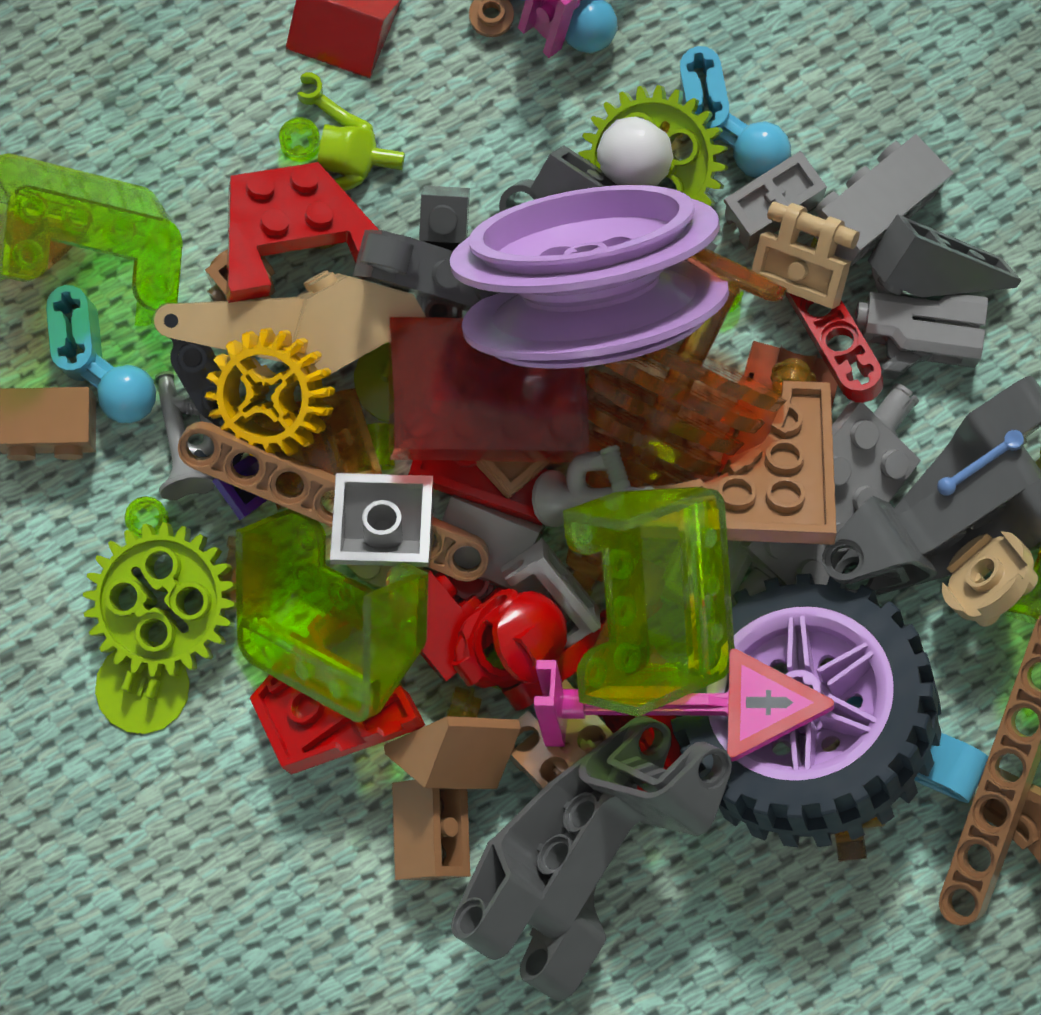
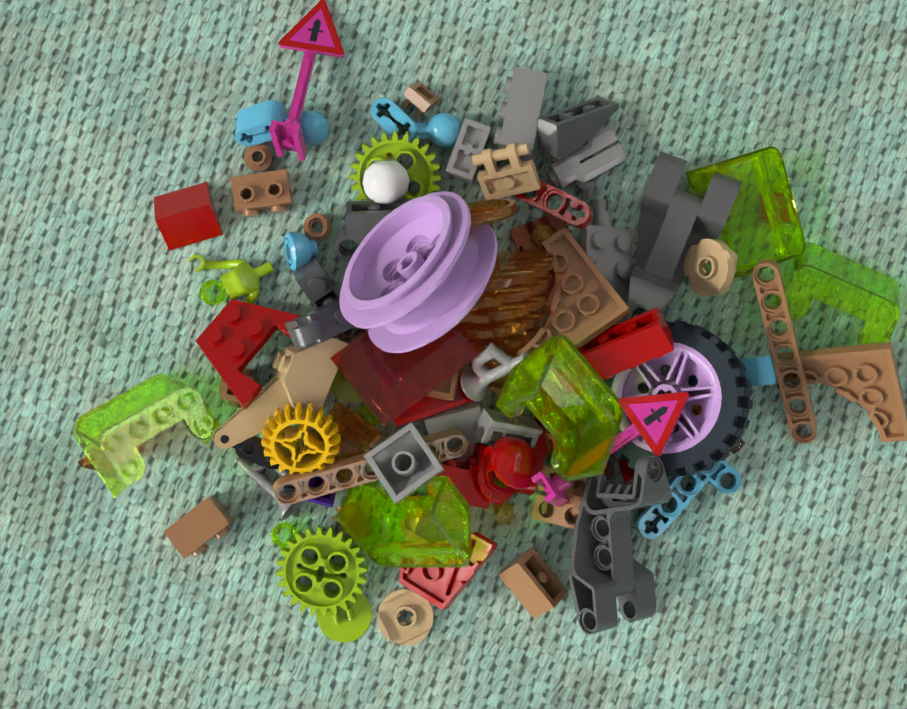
camera: 30 degrees left, 10 degrees up
(123, 391) = (226, 482): beam -> none
(208, 726) = (400, 631): none -> tan plate
(454, 164) = (298, 250): none -> medium azure brick
(456, 752) = (521, 544): medium nougat slope -> none
(462, 59) = (262, 192): none -> medium nougat brick
(504, 142) = (311, 220): none -> medium nougat plate
(724, 867) = (683, 497): none -> medium azure beam
(762, 89) = (420, 97): none -> medium nougat tile
(801, 583) = (629, 344): none -> red brick
(1013, 440) = (676, 192): medium blue hinge -> none

